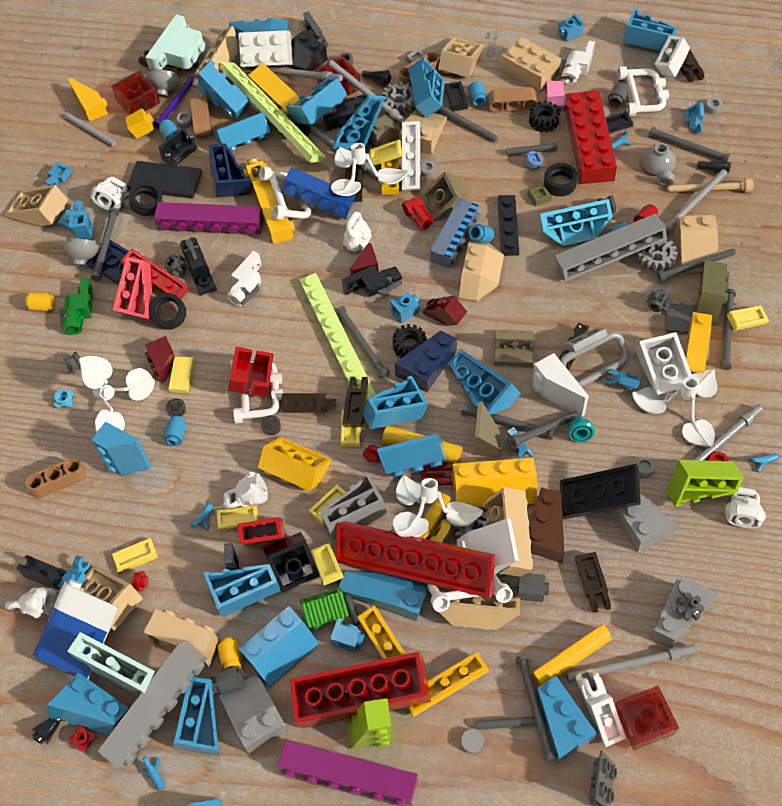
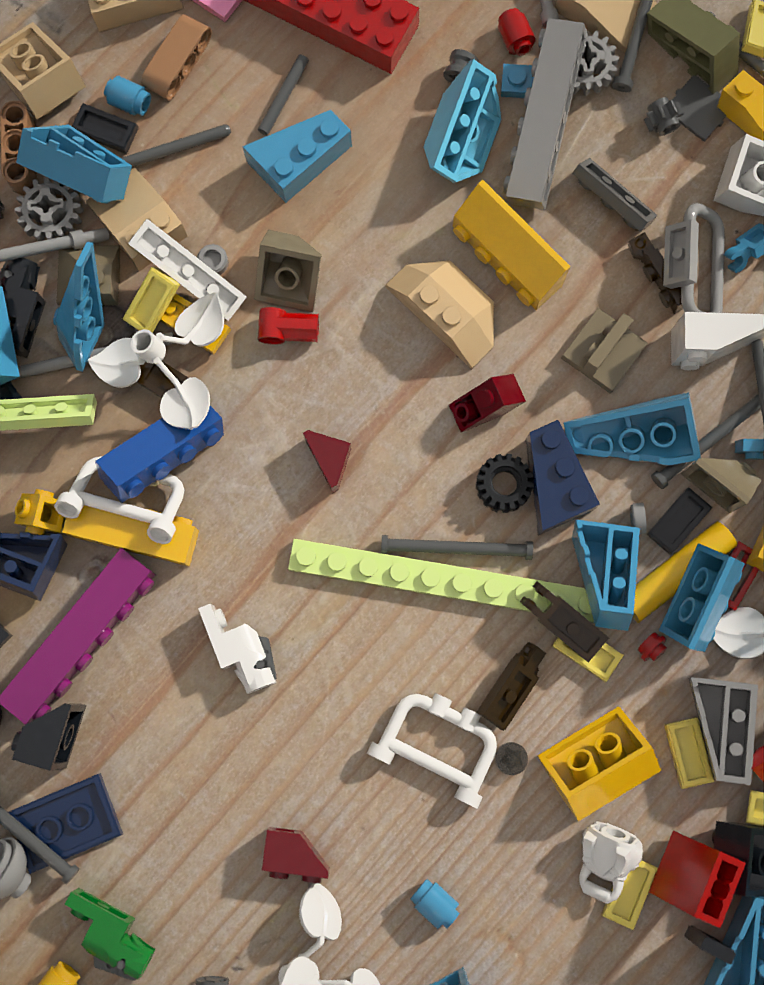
camera: 60 degrees left, 20 degrees up
(134, 290) = (154, 832): coral wedge -> none
(155, 230) = (49, 738): none -> black slope
(159, 277) = (132, 782): red plate -> none
(161, 299) = (224, 823): black tyre -> none
(175, 265) = (136, 739): dark grey gear -> none
(176, 407) = (392, 879): clear smoke tile -> none
(181, 374) = (338, 839): light yellow tile -> none
(197, 266) = (161, 706): black plate -> none
(203, 517) = (601, 942): dark azure bar -> none
(250, 376) = (423, 742): red piece -> none
(357, 233) = (271, 439): white piece -> none
(372, 281) = (372, 465): black plate -> none
(405, 306) = (441, 461): dark azure brick -> none
(436, 409) = (638, 517): none -> light grey tile
(451, 431) = (679, 520): none -> black tile
(454, 233) = (364, 301): sand blue brick -> none
(481, 233) = (394, 265): dark azure brick -> none
(506, 168) = (298, 153): none -> dark azure wedge
(508, 225) = (395, 218): black plate -> none
(529, 273) = (509, 246): none -> yellow slope
(533, 159) = (307, 105): medium blue tile -> none
(539, 195) = (374, 141): olive tile -> none
(544, 109) = (237, 20): black tyre -> none
(560, 189) = (370, 73): black tyre -> none
(598, 303) = (614, 195): none -> dark grey plate

